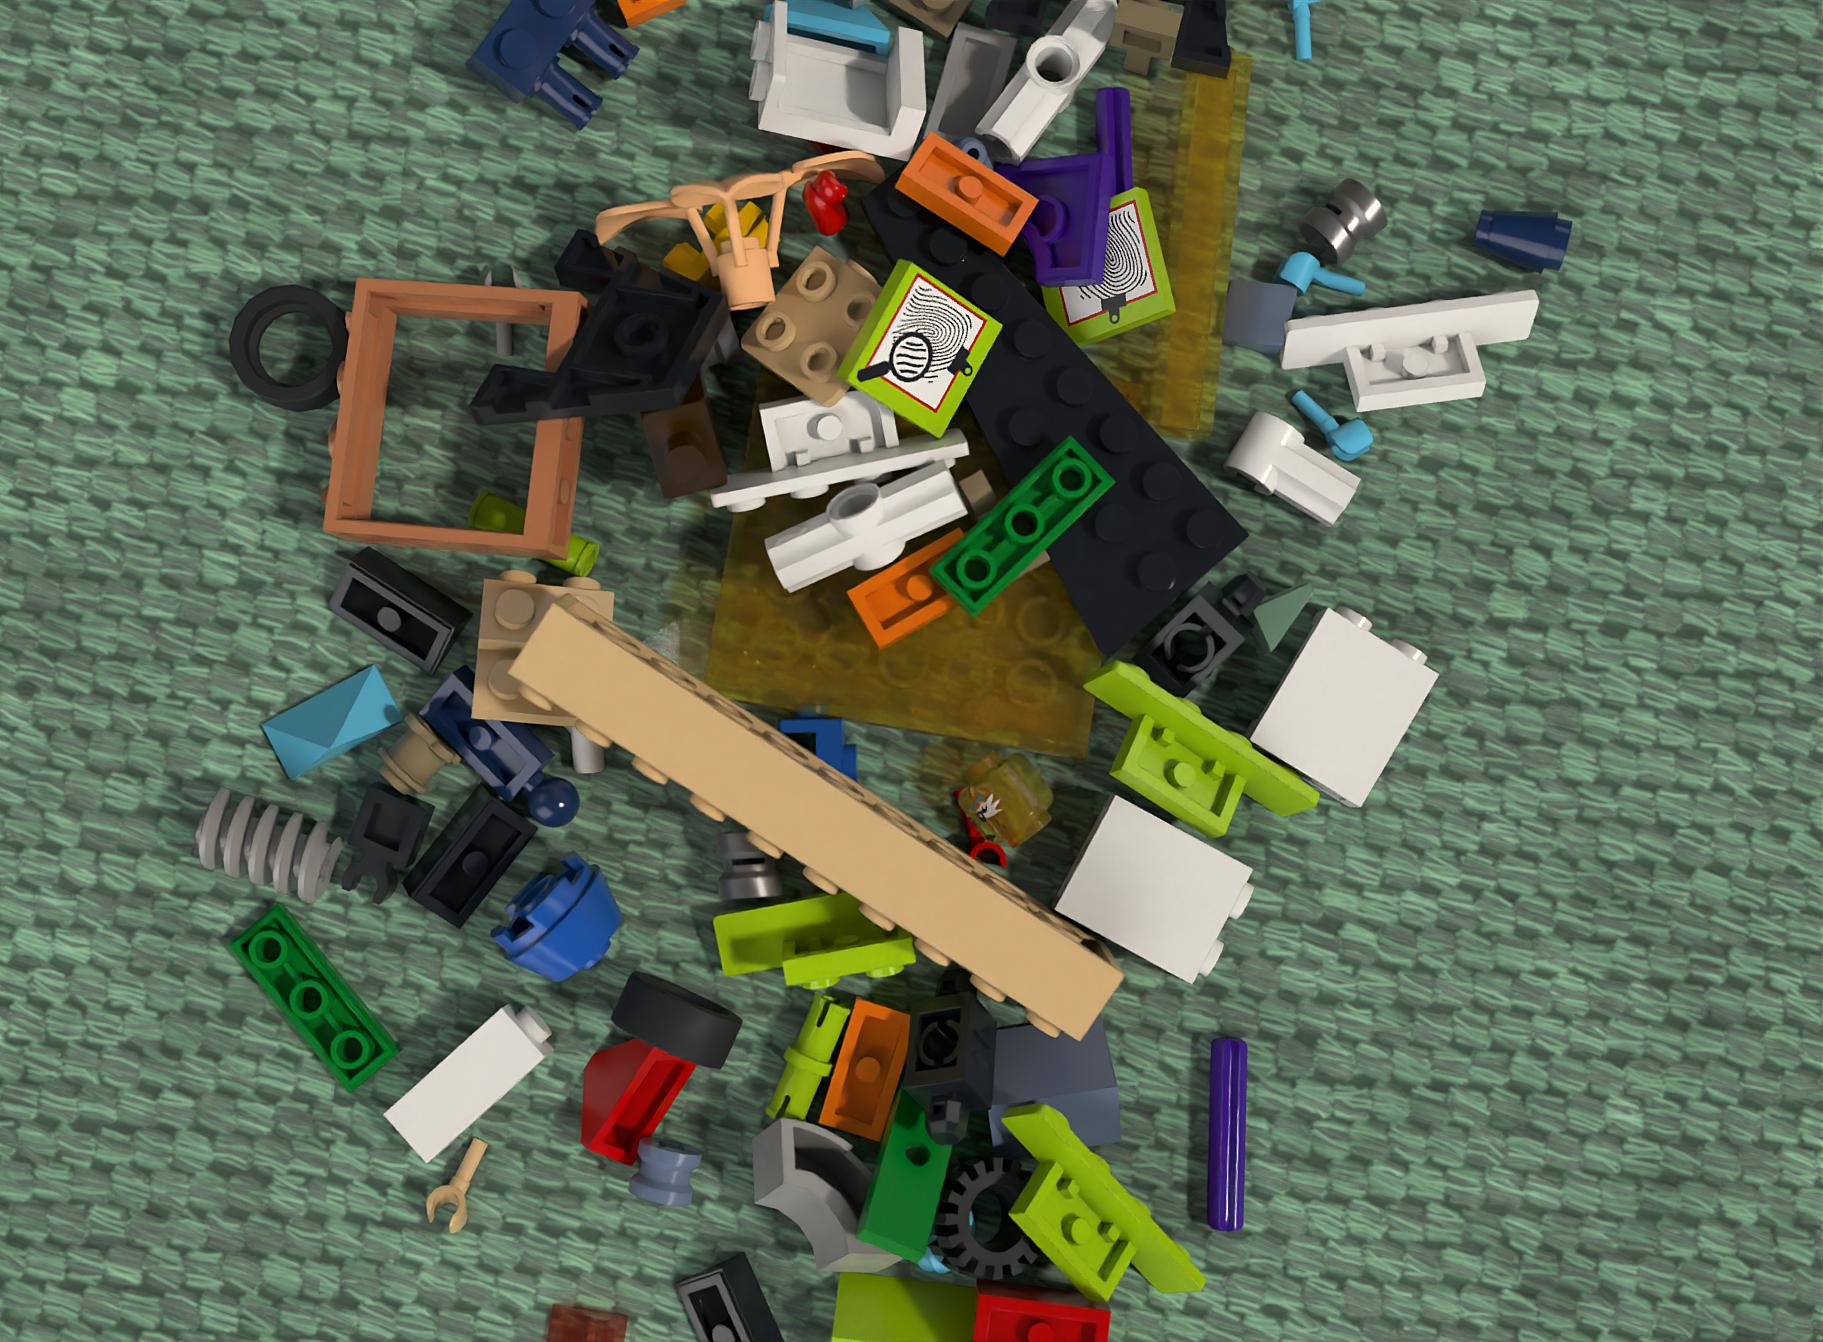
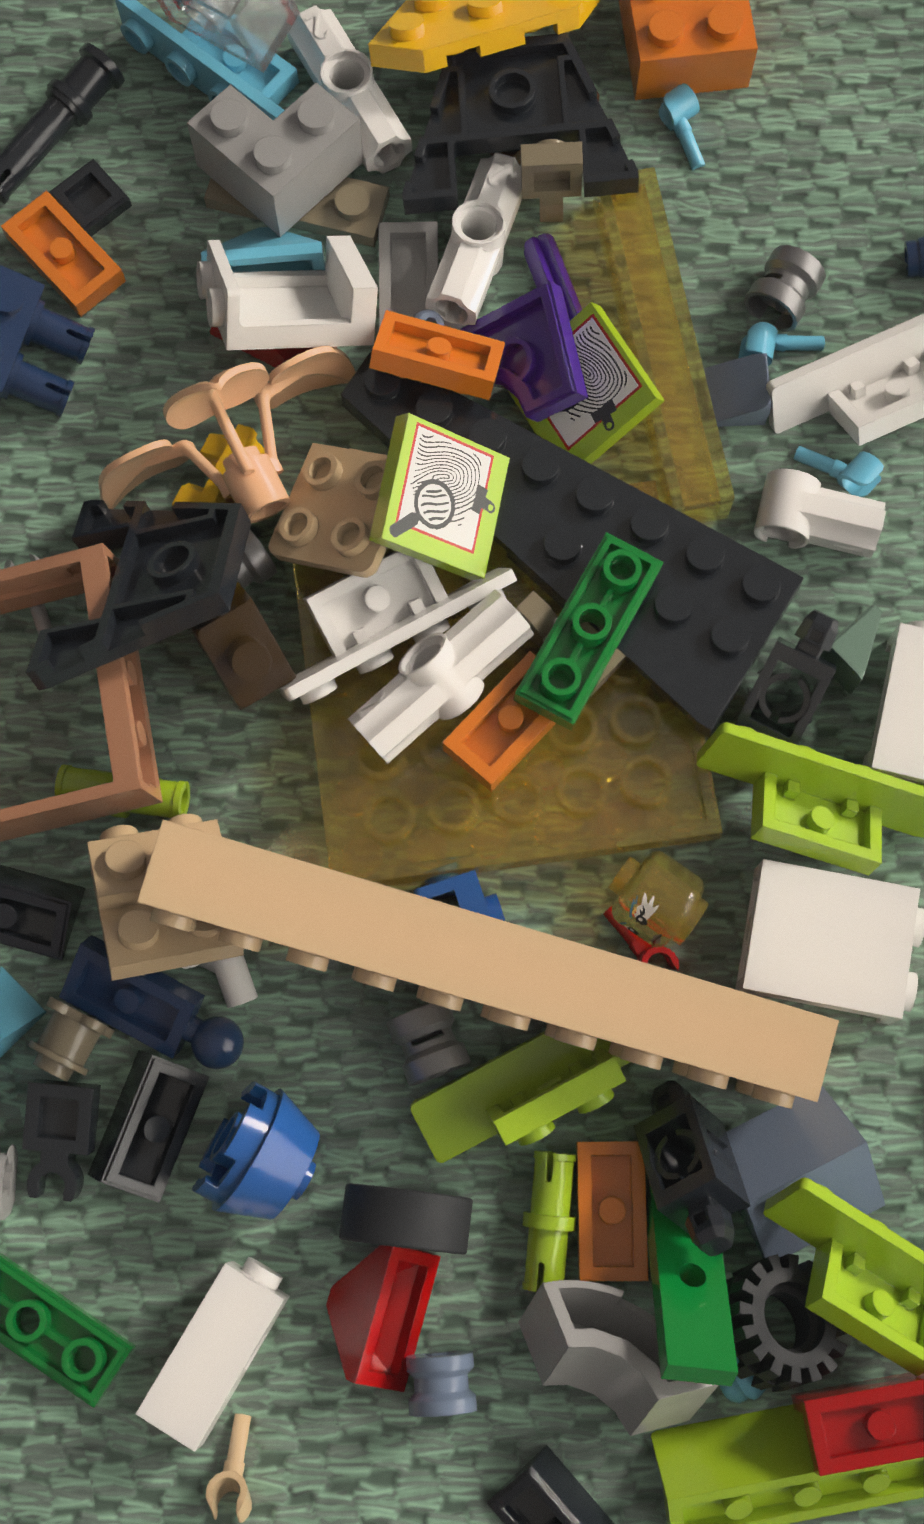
camera: 10 degrees left, 10 degrees down
(824, 203) = (303, 404): red arm -> none

